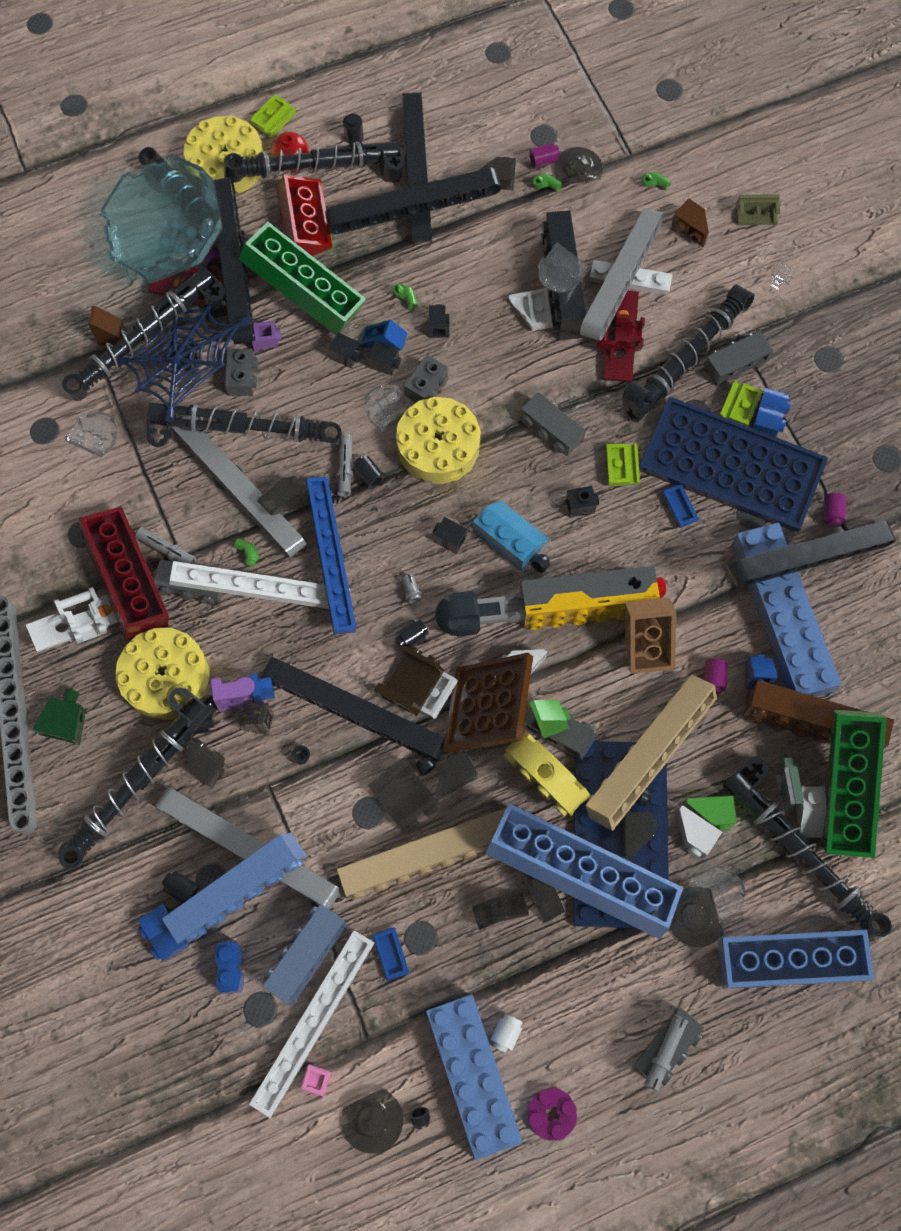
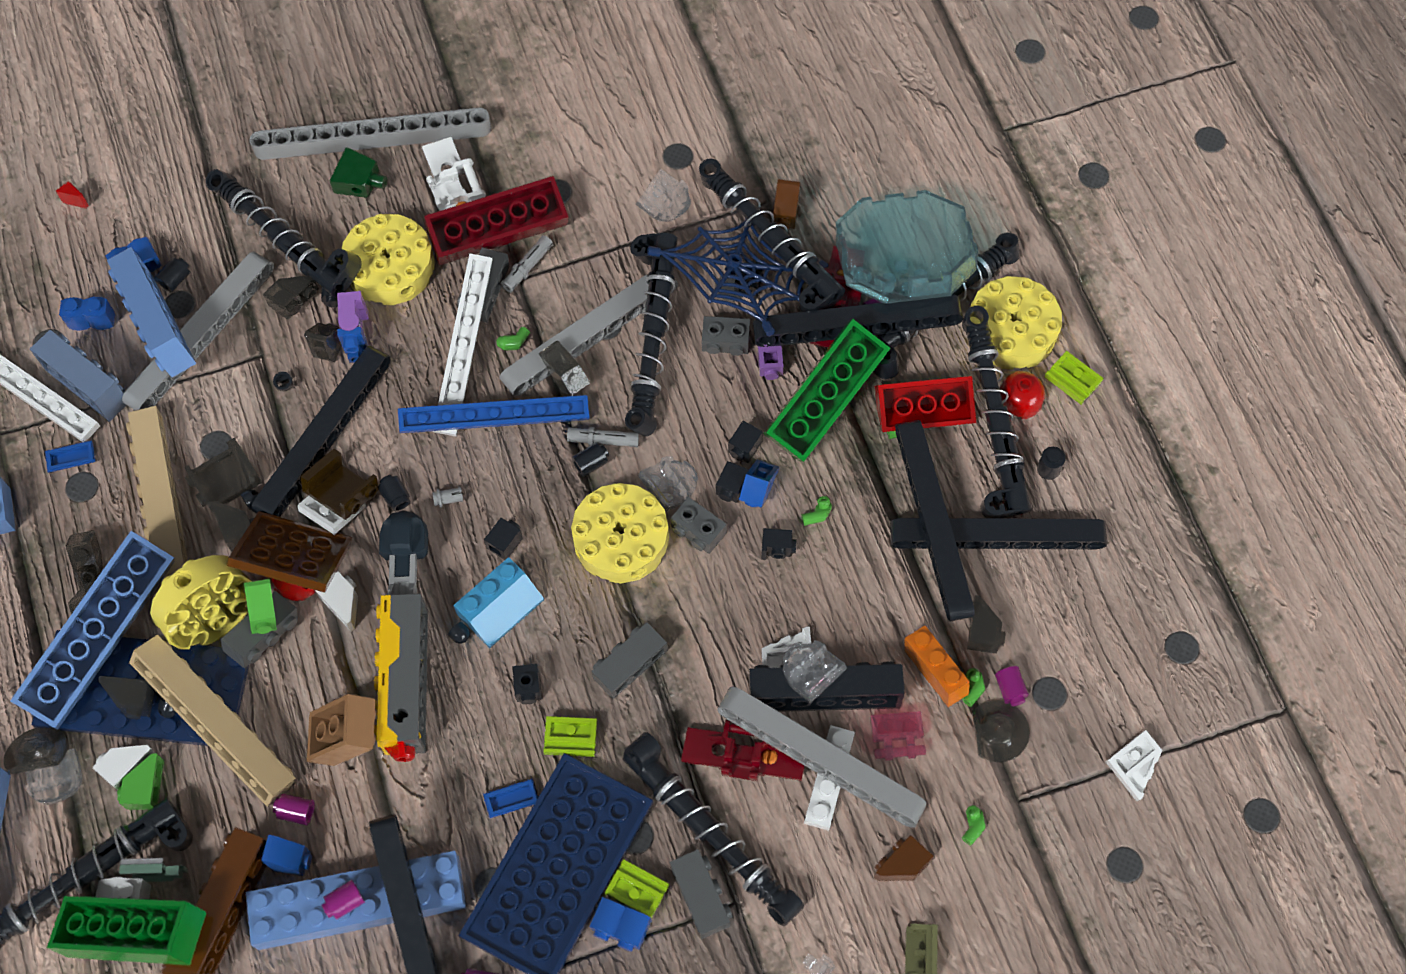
camera: 95 degrees right, 5 degrees down
(82, 1017) = (71, 195): none -> red slope
(536, 201) = (936, 666): none -> orange brick
(586, 232) = (896, 727): none -> clear pink plate
(594, 78) = (1136, 763): none -> white wing
(798, 607) = (342, 900): none -> magenta brick

